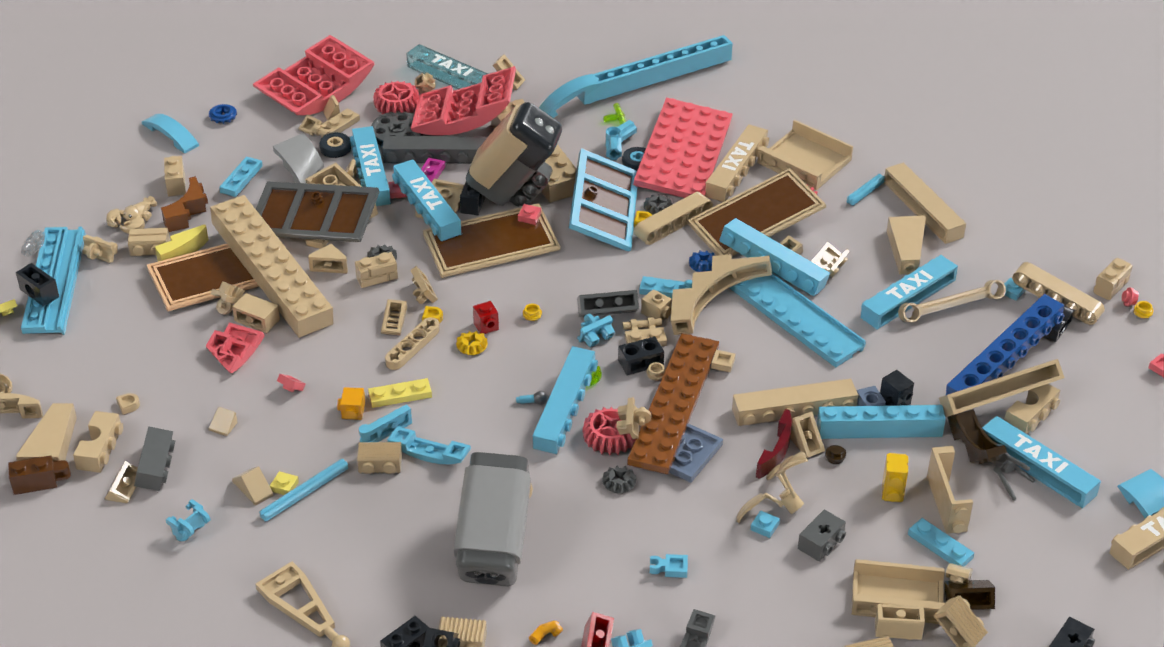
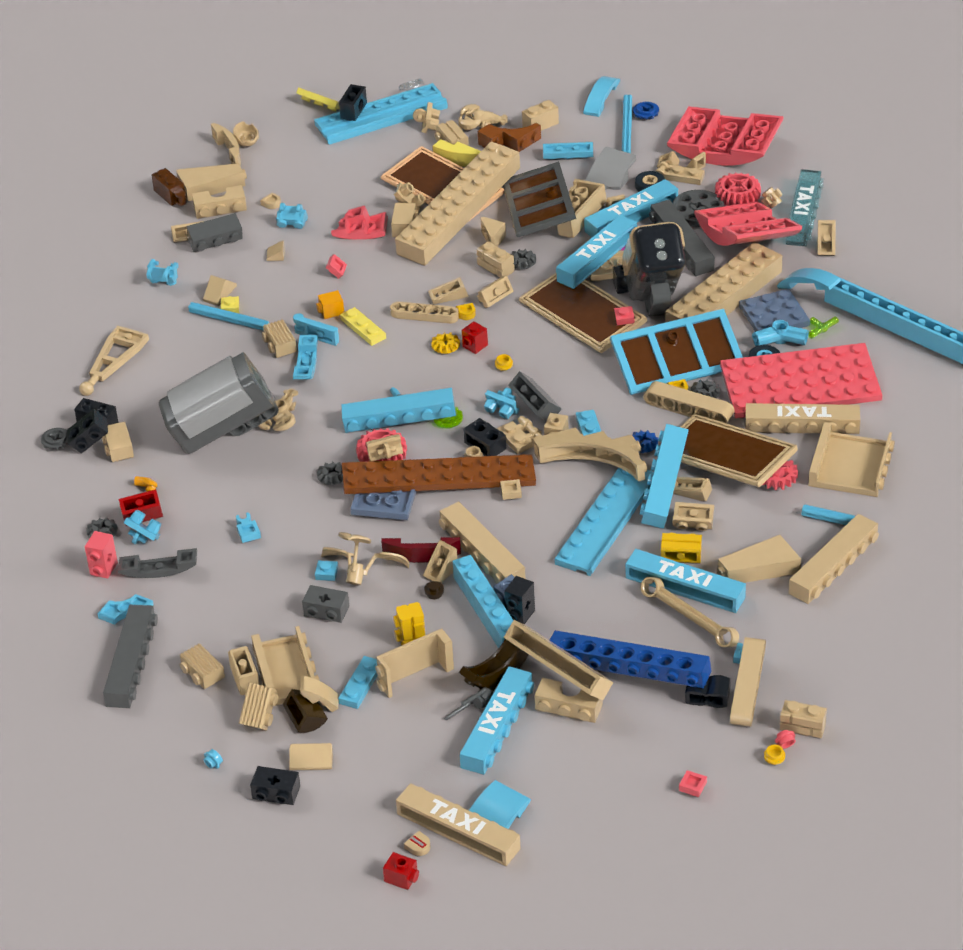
camera: 70 degrees right, 0 degrees up
(175, 391) = (291, 216): none -> medium azure piece
(233, 131) = (627, 123): none -> medium azure axle
(582, 133) = (767, 308): none -> sand blue plate
(865, 280) = (681, 547): none -> yellow brick
(1035, 609) = (310, 756): none -> tan slope

